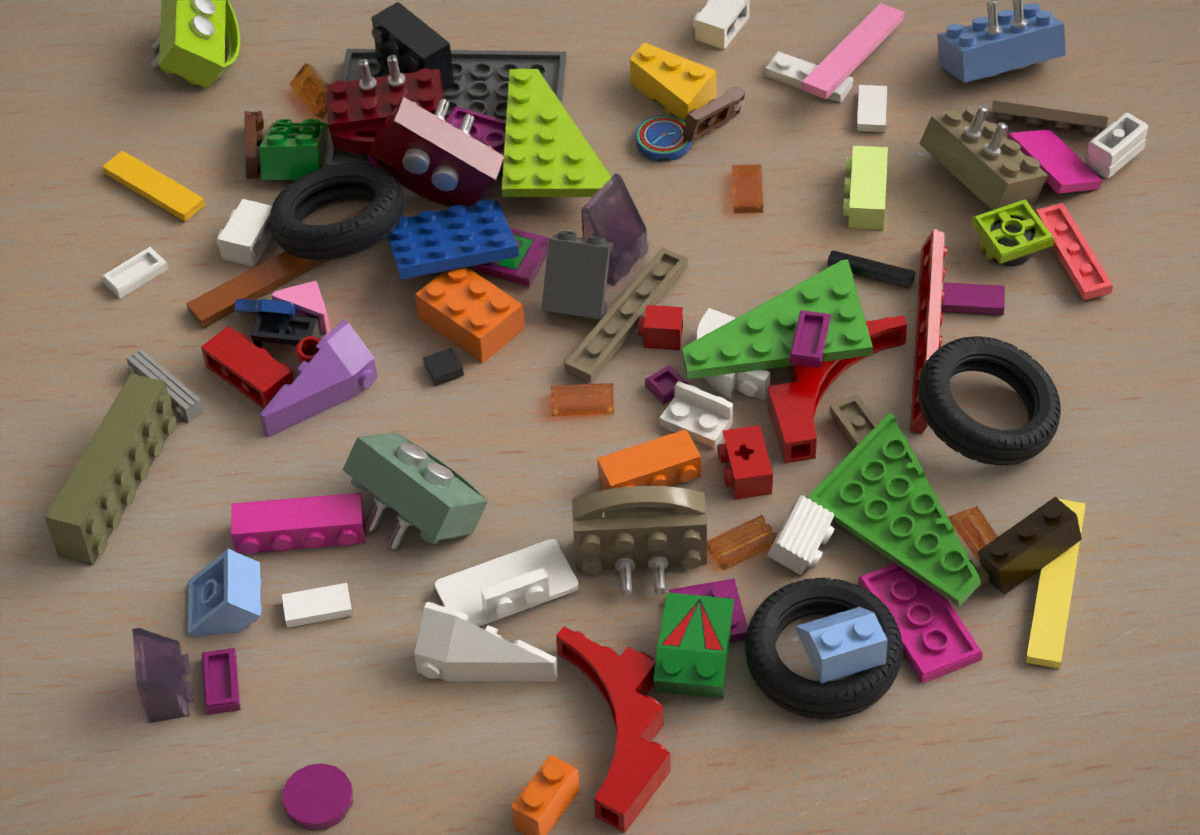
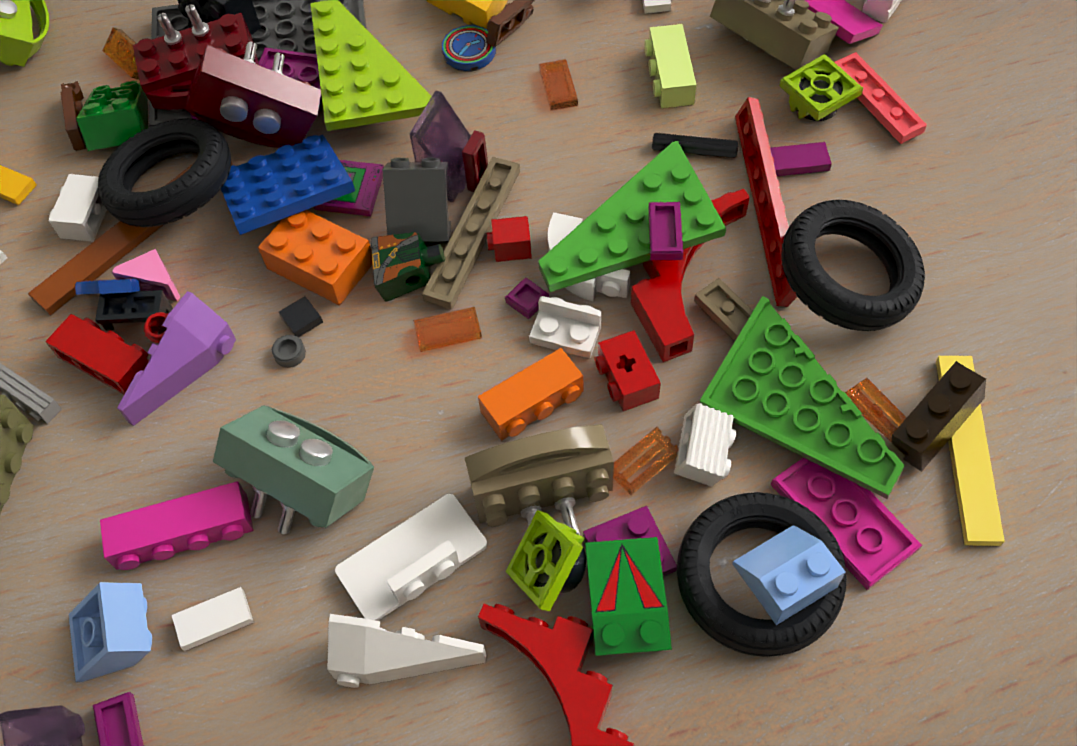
camera: 10 degrees left, 10 degrees up
(426, 395) = (288, 351): none -> dark grey tile
(551, 332) = (402, 263): none -> torso
(630, 602) = (548, 560): none -> lime piece
(642, 246) = (475, 159): none -> dark red tile

